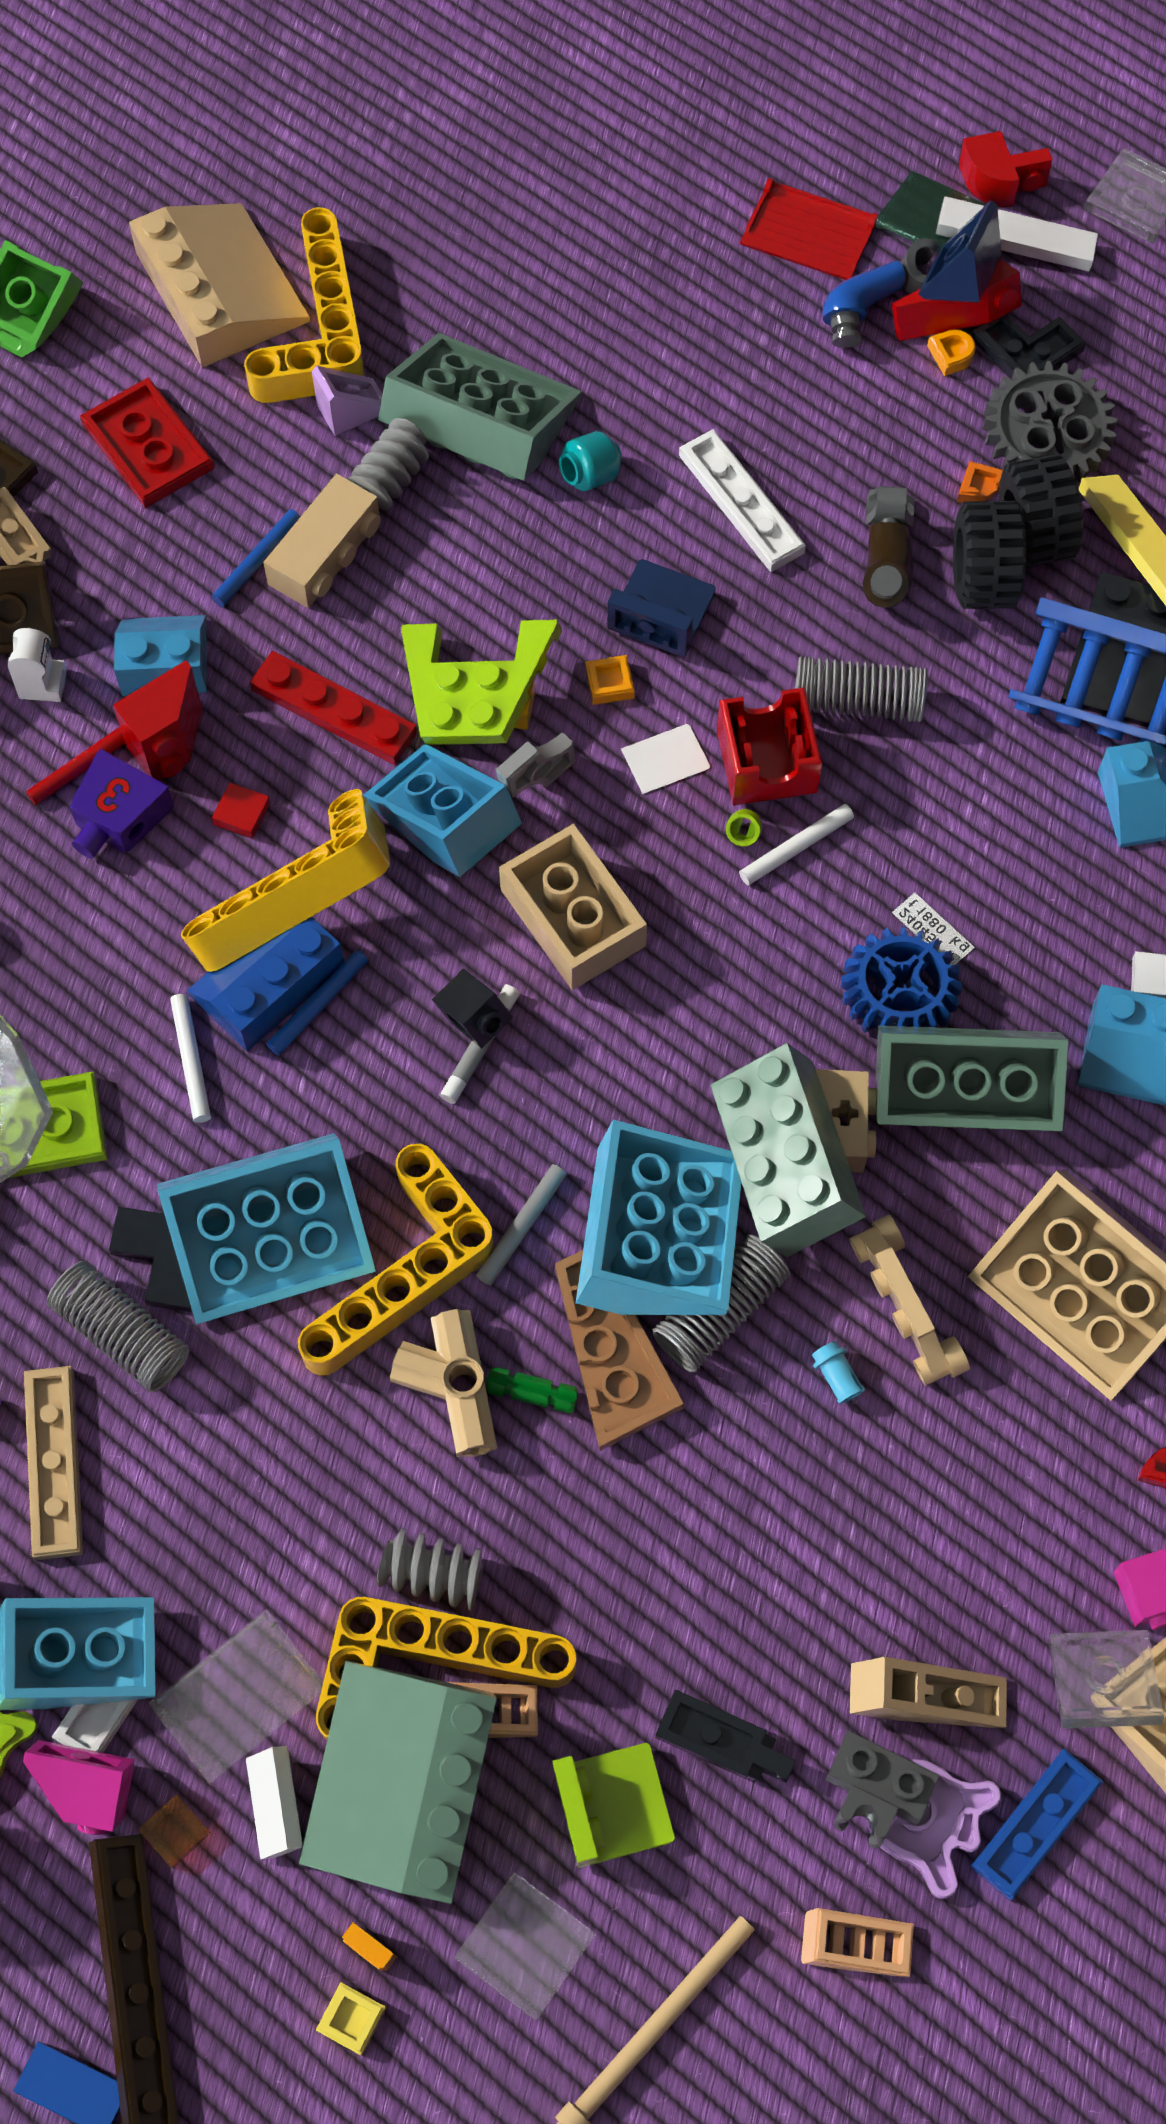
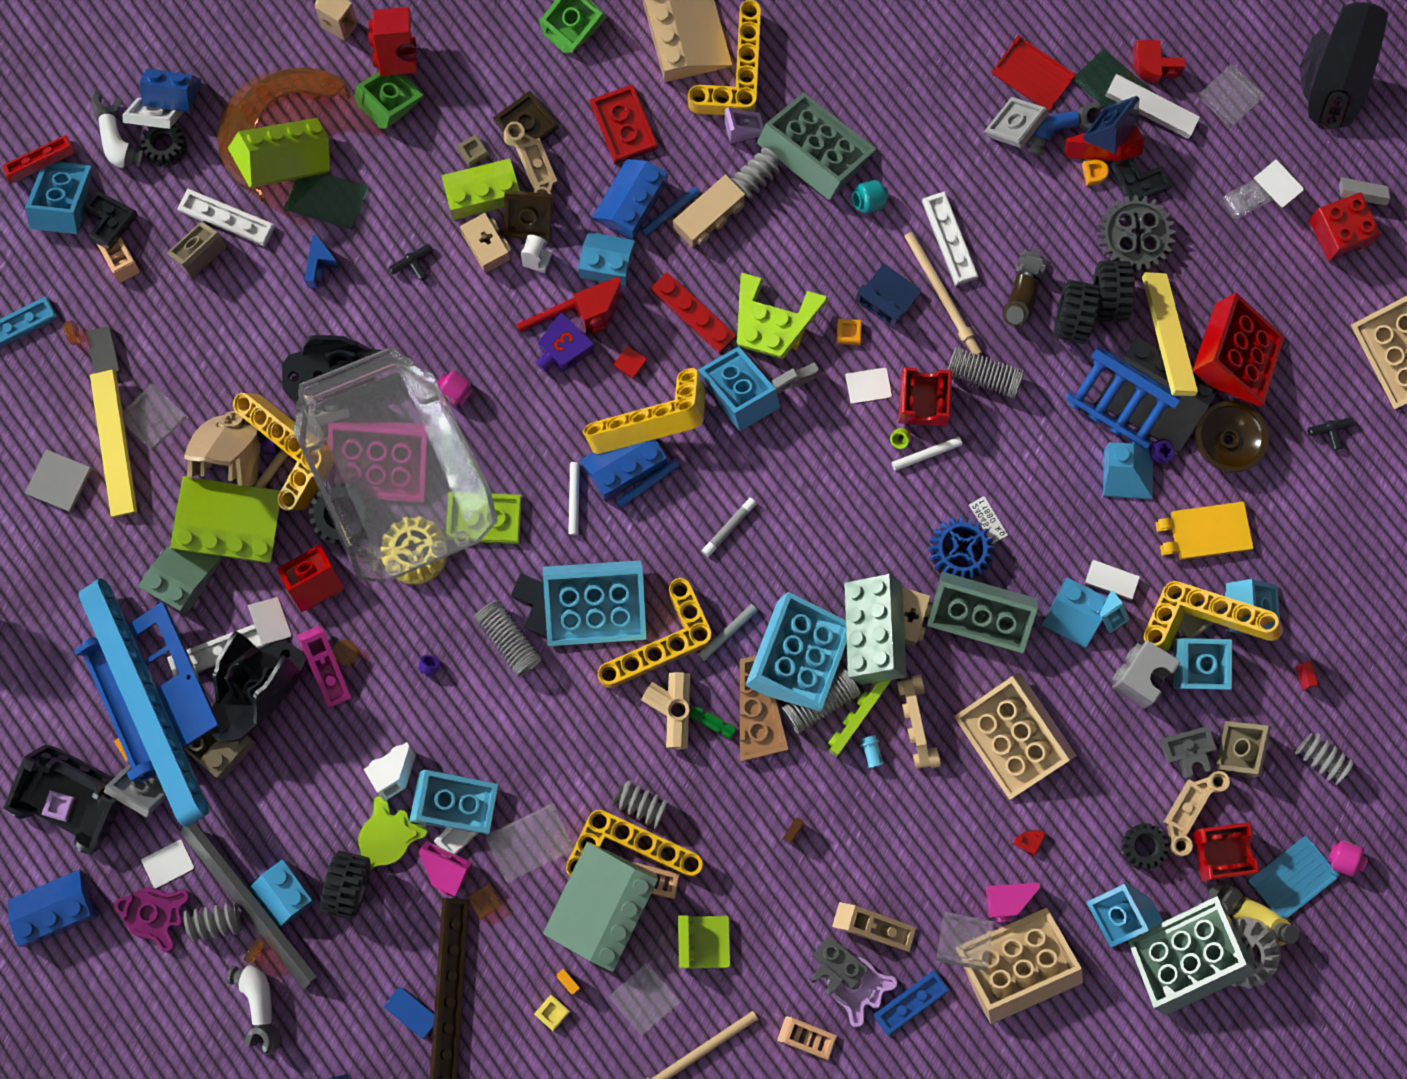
camera: 10 degrees right, 10 degrees up
(53, 1463) = (460, 701): tan tile -> none
(186, 548) = (631, 197): none -> blue slope
(274, 1802) = (536, 900): white tile -> none
(472, 1008) = (729, 509): black brick -> none
(573, 906) = (796, 464): tan brick -> none
(722, 1739) = (765, 923): black hinge -> none
(730, 1551) = (793, 830): none -> reddish brown tile
(790, 1324) = (853, 720): none -> lime plate
(803, 298) = (1016, 122): none -> light grey tile
(808, 637) = (965, 333): none -> tan bar
(979, 483) = (1087, 259): orange tile -> none

